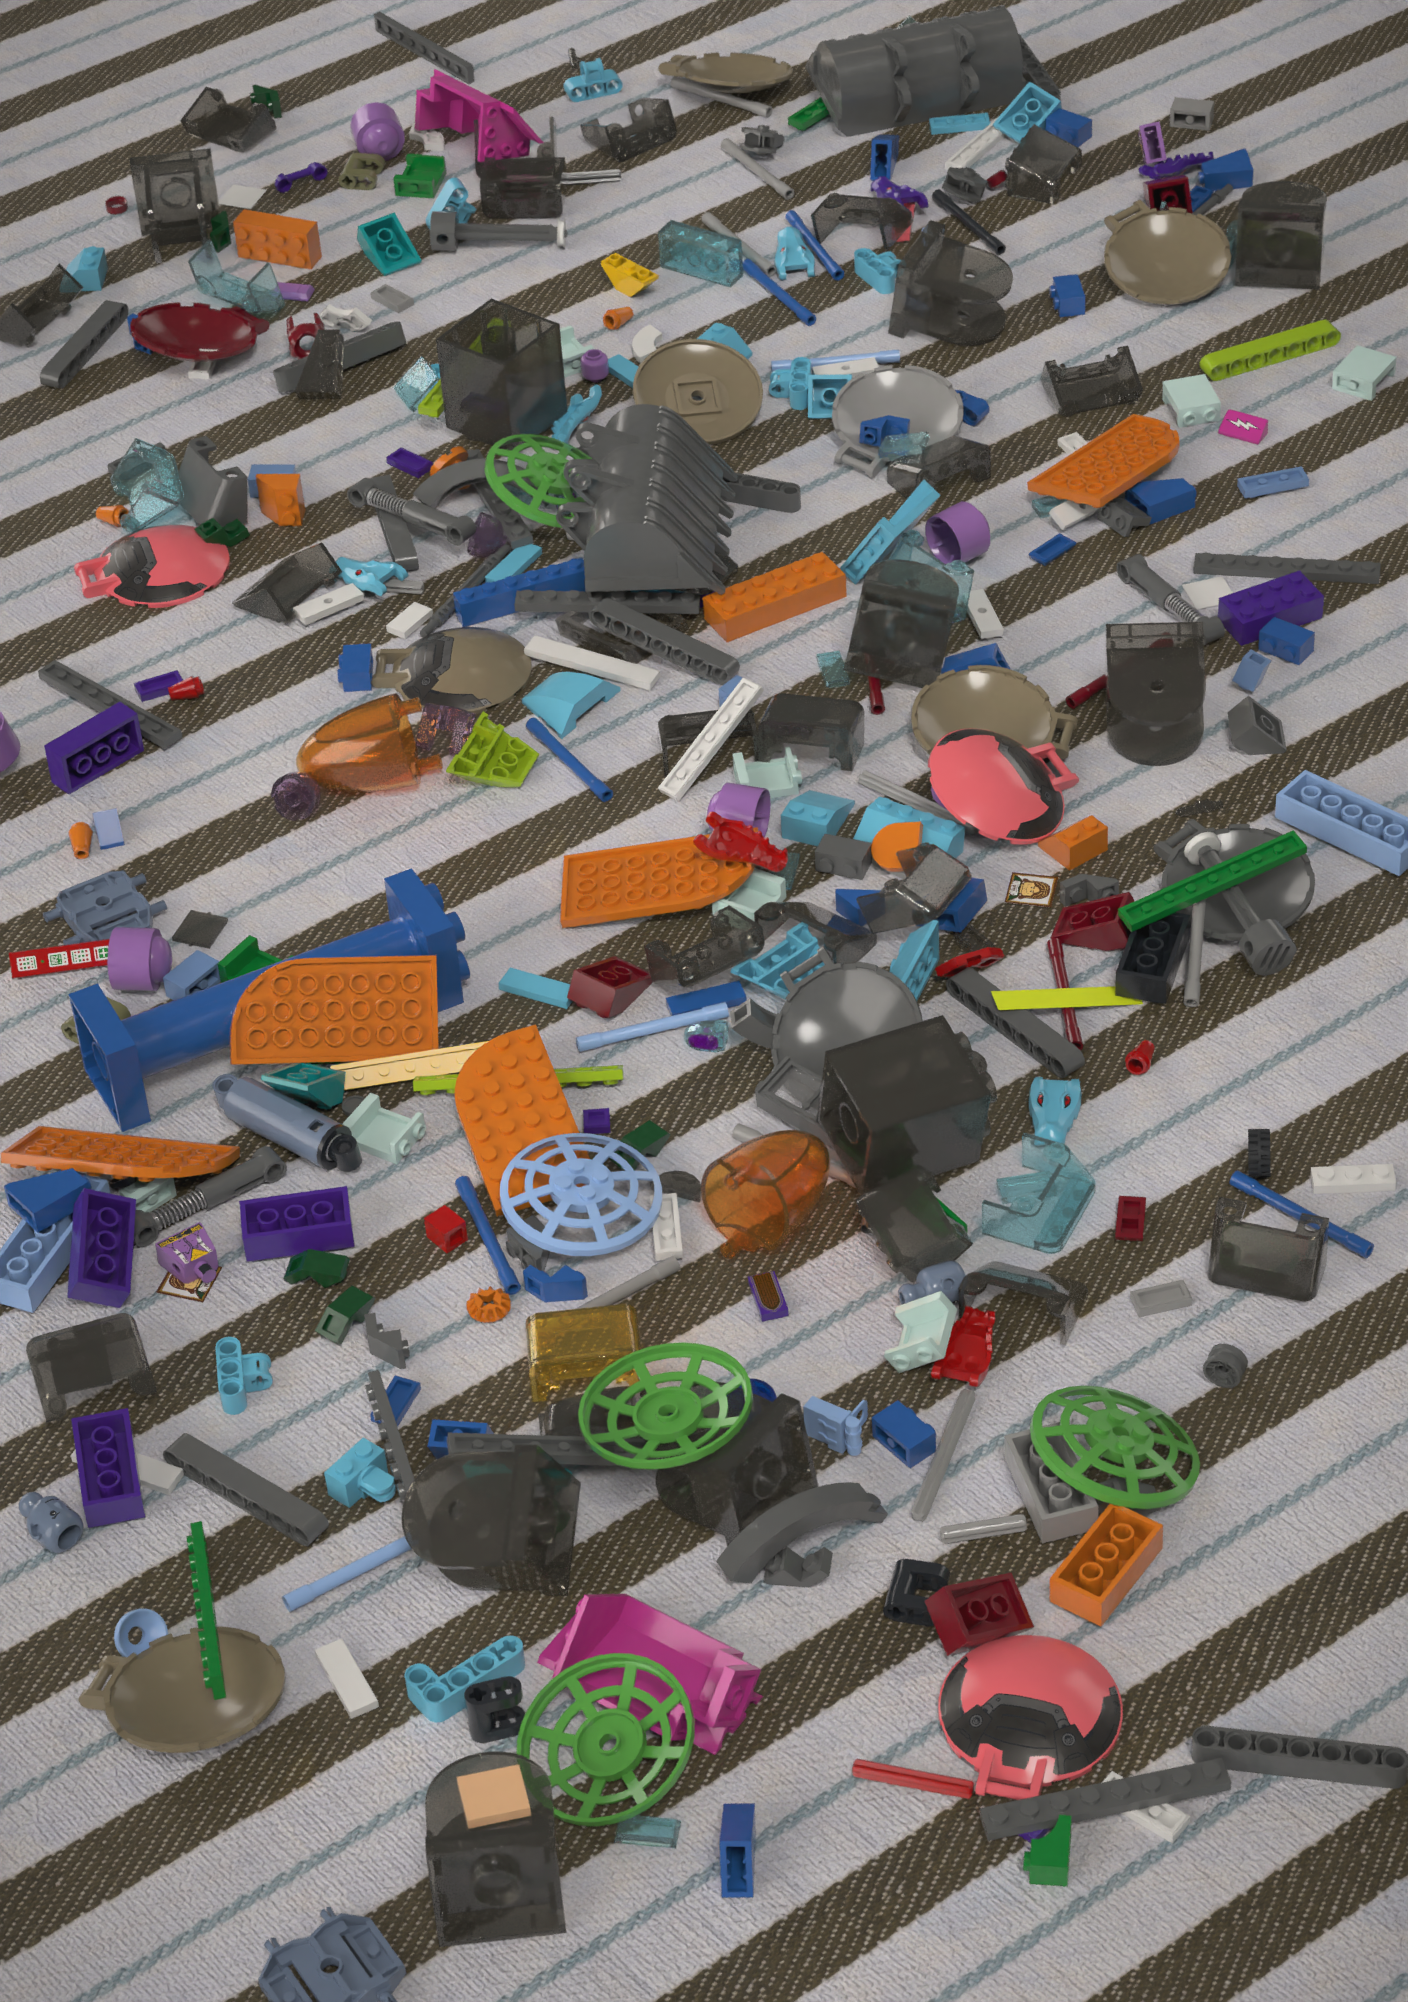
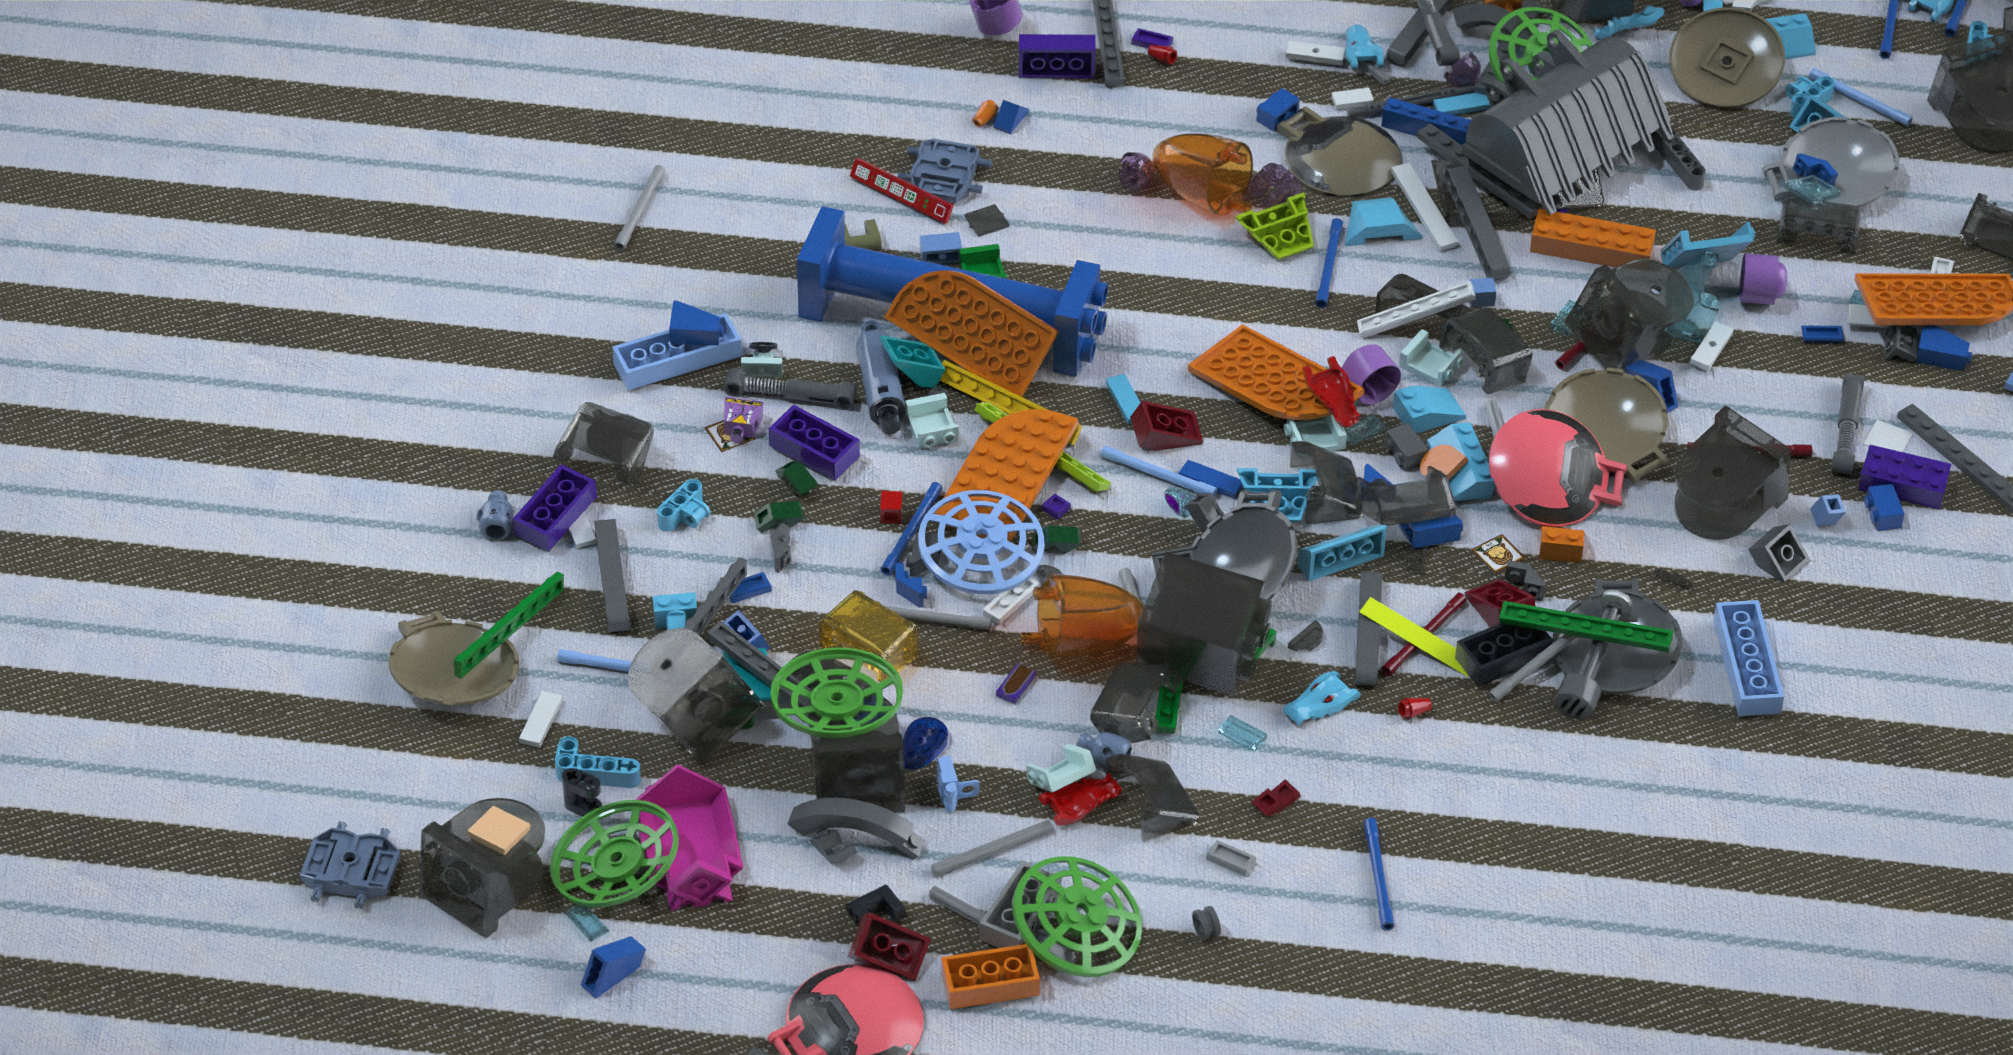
camera: 40 degrees right, 5 degrees up
(101, 1248) = (691, 377): dark purple brick -> none
(117, 1154) = (767, 327): orange plate -> none
(138, 959) = (916, 212): medium lavender piece -> none
(147, 1621) = (454, 606): light blue piece -> none
(289, 584) = (1305, 23): clear smoke windscreen -> none
(488, 1312) = (856, 575): orange gear -> none
(733, 942) = (1232, 451): clear smoke windscreen -> none
(852, 368) = (1856, 108): white tile -> none
(904, 1434) = (982, 819): blue brick -> none
(913, 1778) = (747, 1004): red axle -> none
(973, 408) = (1901, 192): blue piece -> none
(980, 958) = (1395, 571): red tile -> none
(1050, 1220) = (1241, 756): clear light blue windscreen -> none
(1259, 1153) = (1396, 817): black tyre -> none
(1267, 1257) = (1311, 890): clear smoke windscreen -> none
(1353, 1178) = (1440, 877): white plate -> none

